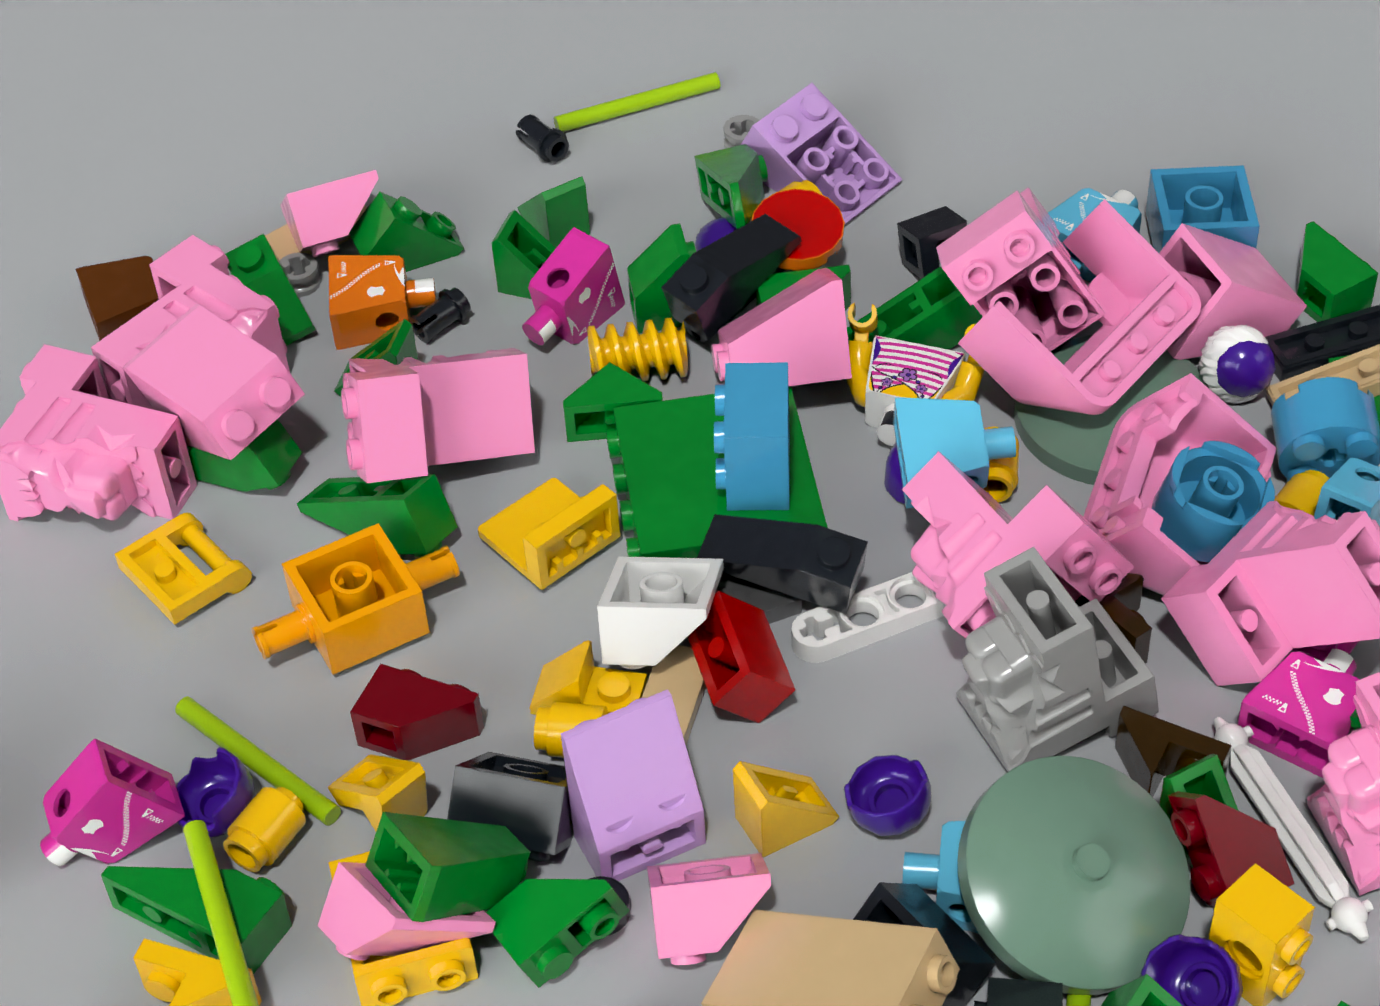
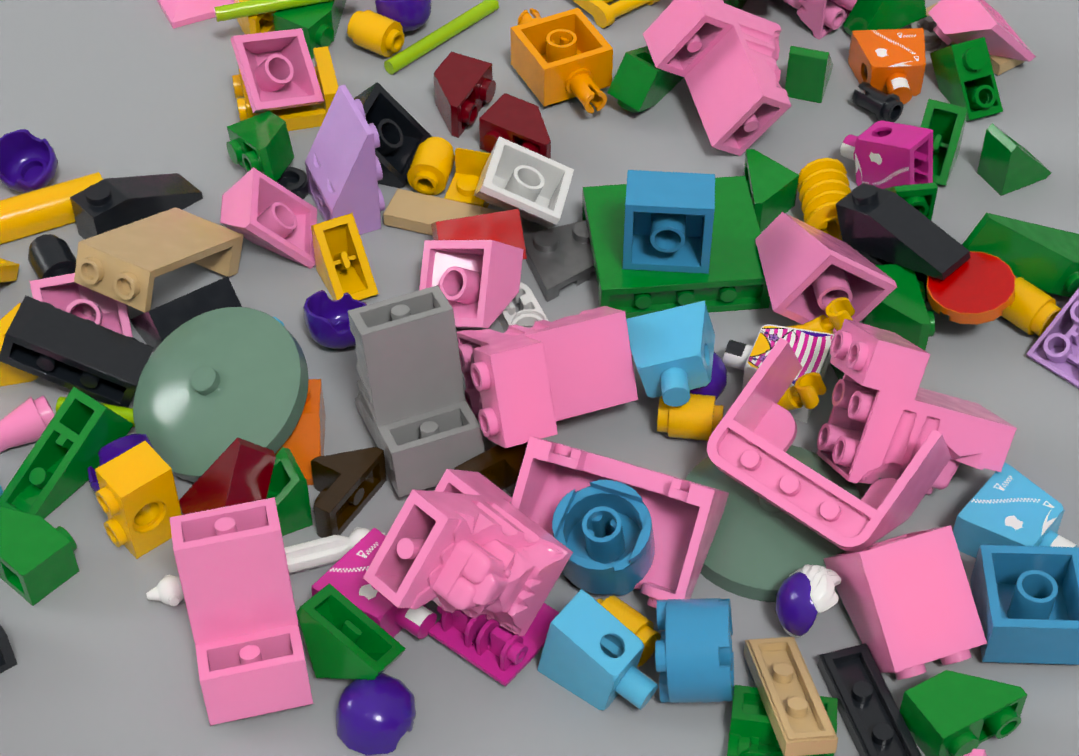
camera: 90 degrees right, 0 degrees up
(382, 786) = (391, 73): yellow slope -> none
(445, 865) = (290, 75): green slope -> none
(505, 641) = (516, 122): none -> dark red slope
(553, 530) = (631, 149): yellow bracket -> none
(789, 557) = (557, 262): black slope -> none
(829, 654) = (474, 277): none -> bright pink slope
(923, 234) = (988, 387): black panel -> none

